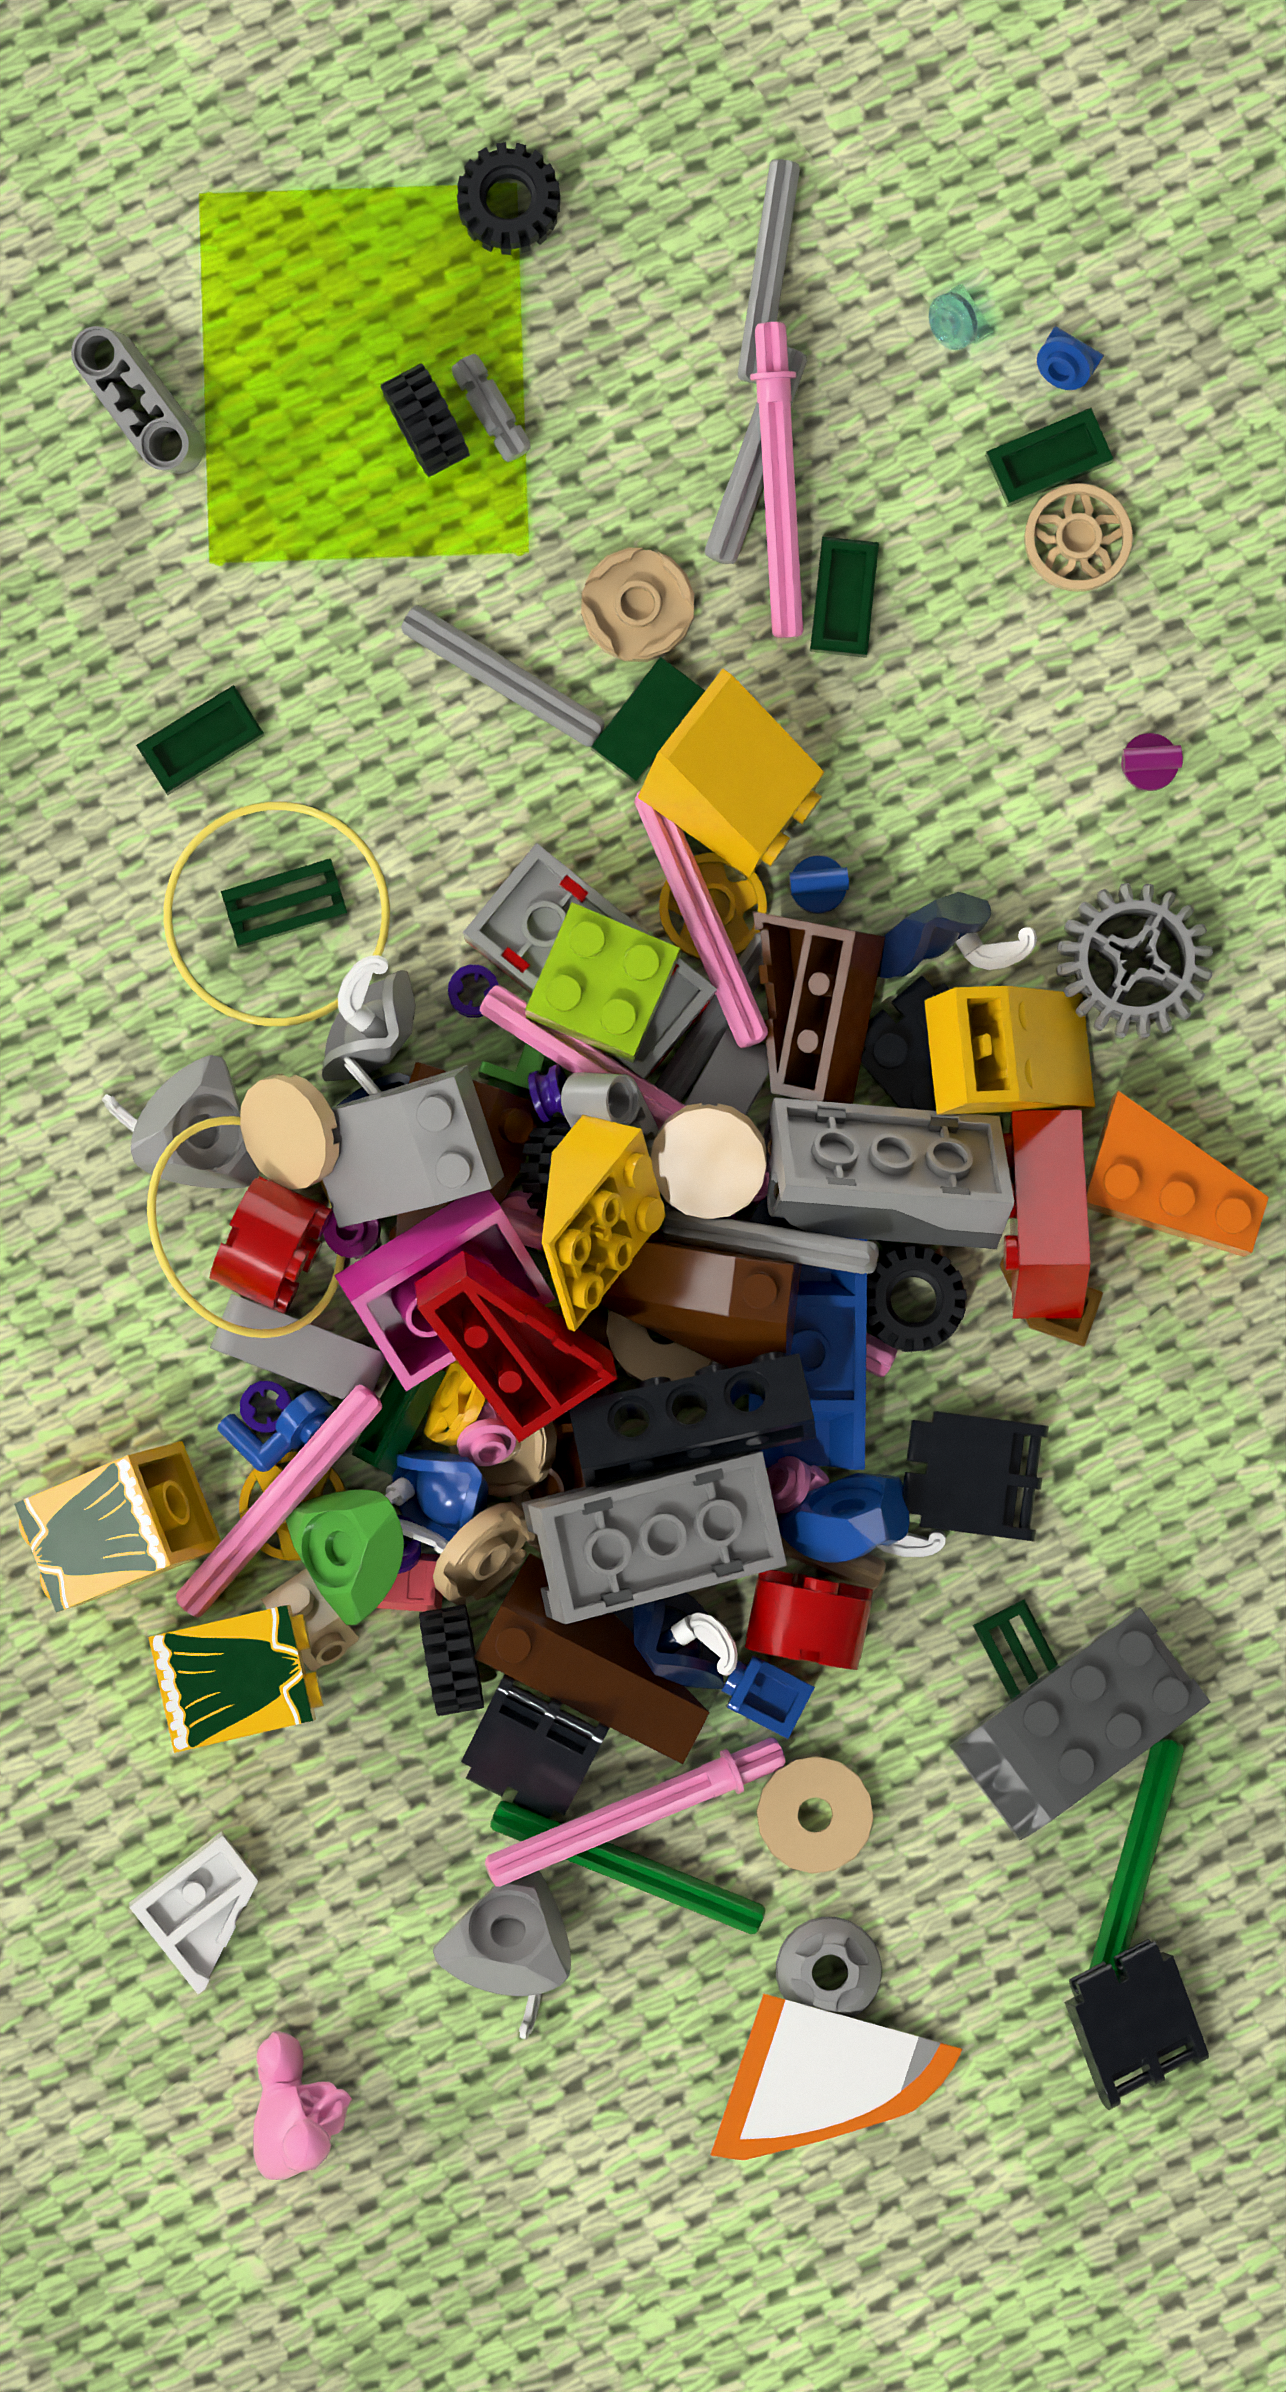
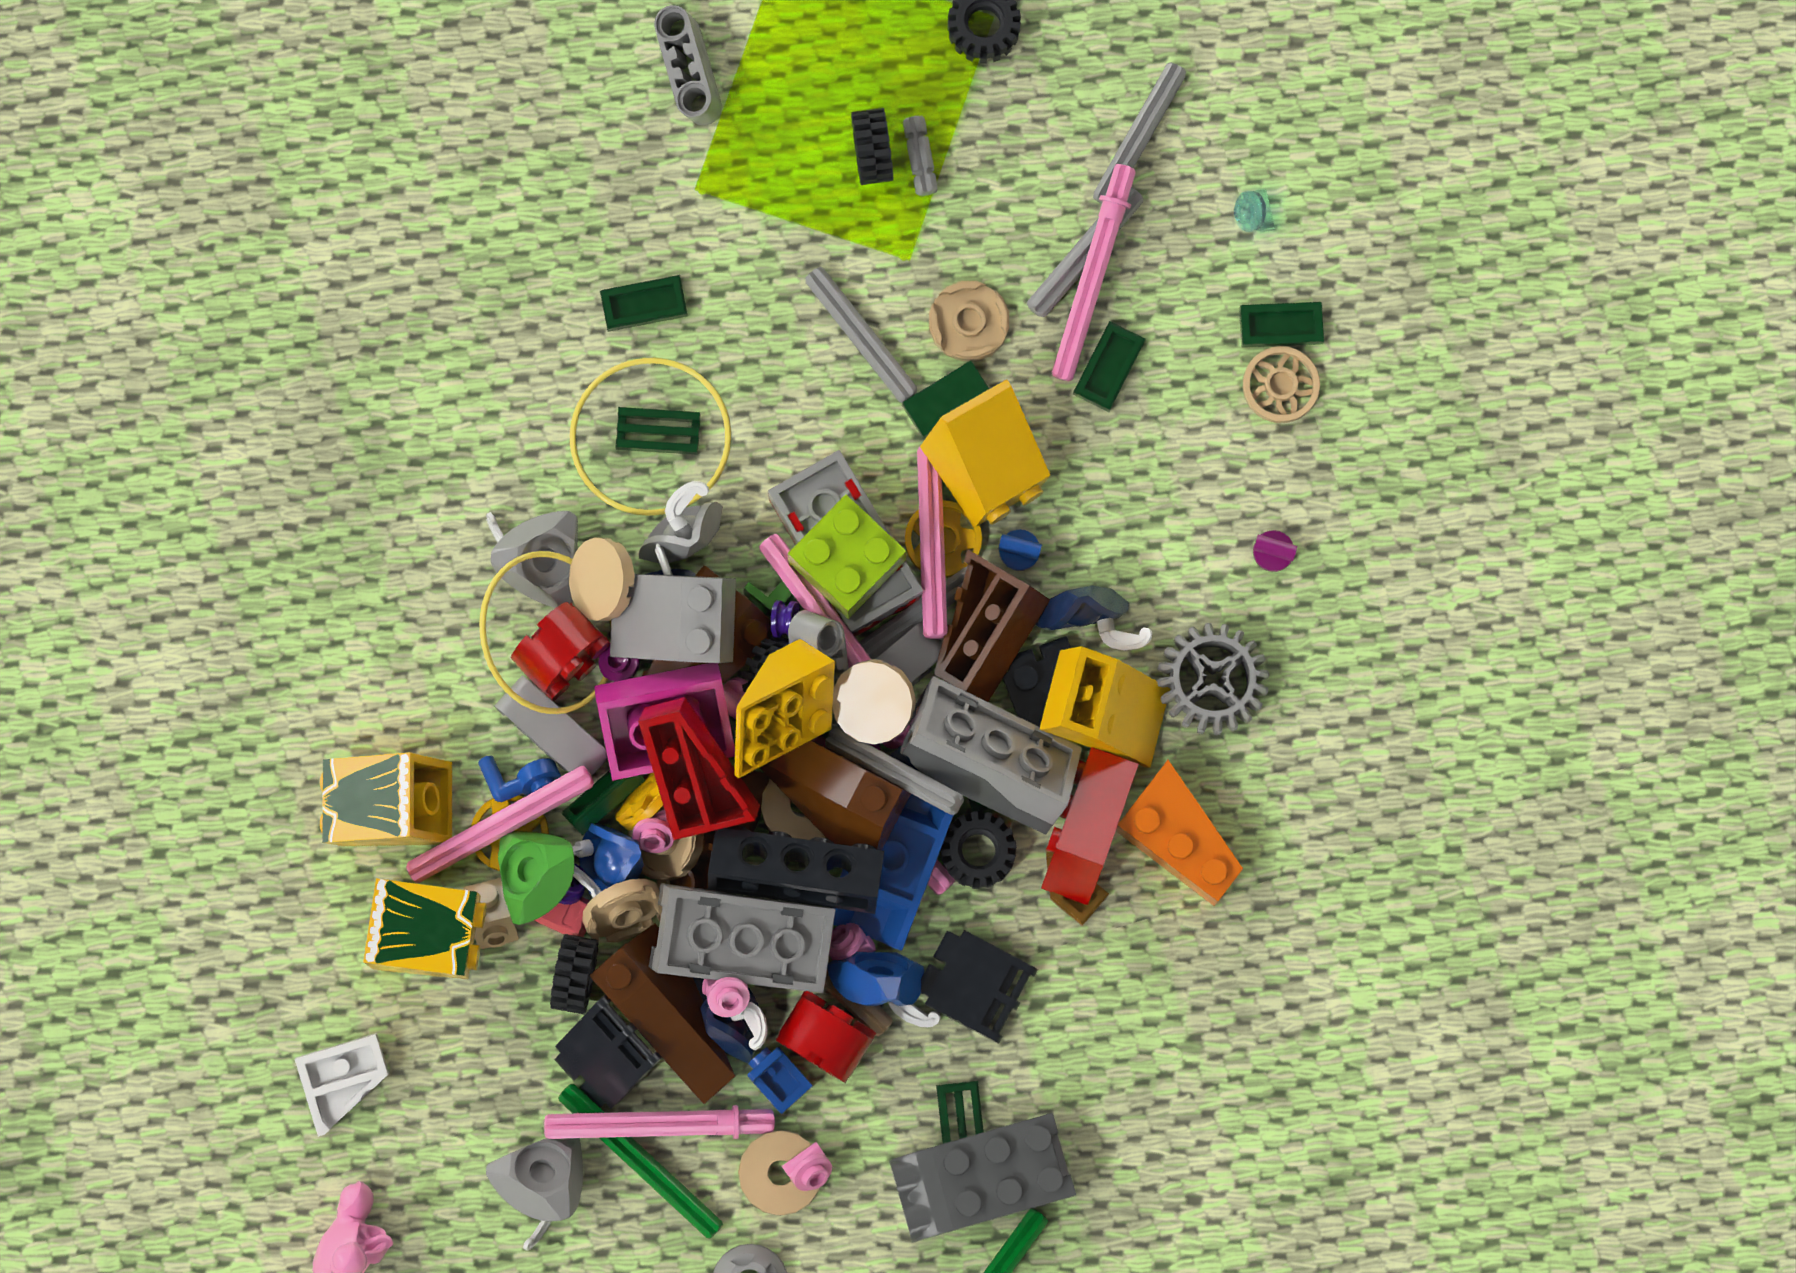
camera: 20 degrees right, 5 degrees down
(248, 1411) = (503, 758): dark purple bush -> none
(455, 988) = (750, 529): dark purple bush -> none
(664, 1618) = (726, 996): none -> bright pink plate
(851, 1796) = (809, 1168): none -> bright pink plate
(1066, 360) = (1317, 265): blue plate -> none

